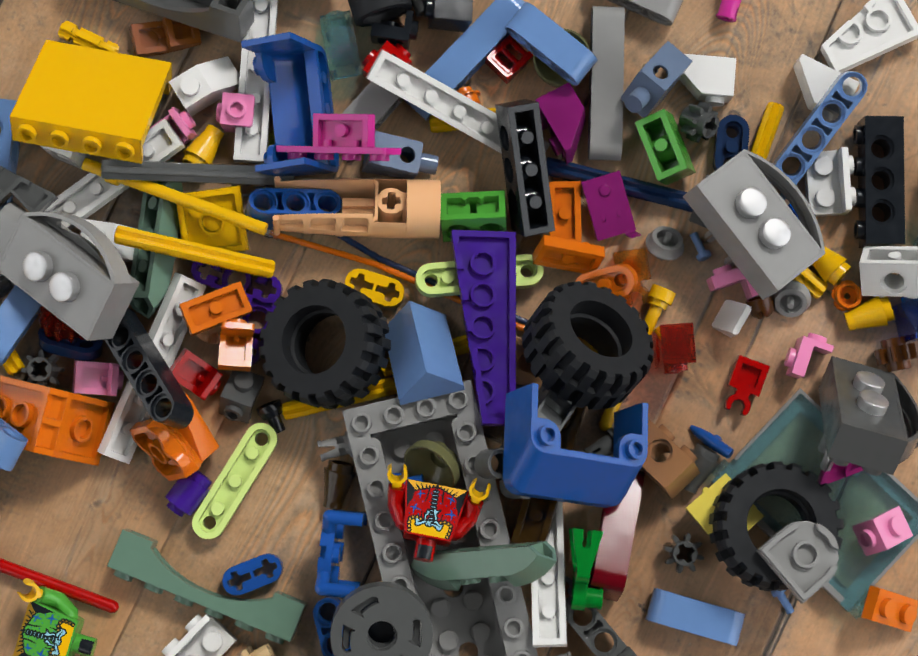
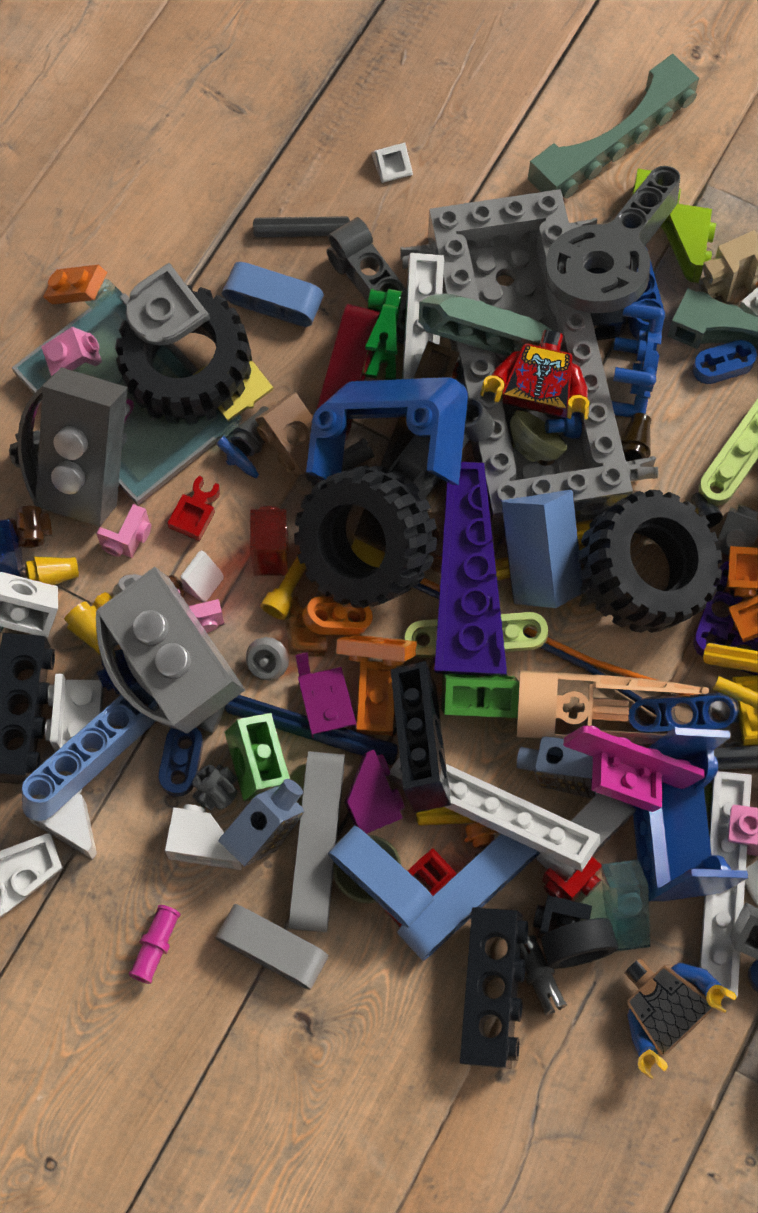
camera: 175 degrees left, 15 degrees down
(377, 280) = (594, 626): yellow beam -> none
(674, 550) = (277, 343): dark grey gear -> none
(702, 253) = (225, 648): medium blue piece -> none
(767, 129) = (142, 766): yellow axle -> none
(840, 290) = (72, 584): orange plate -> none

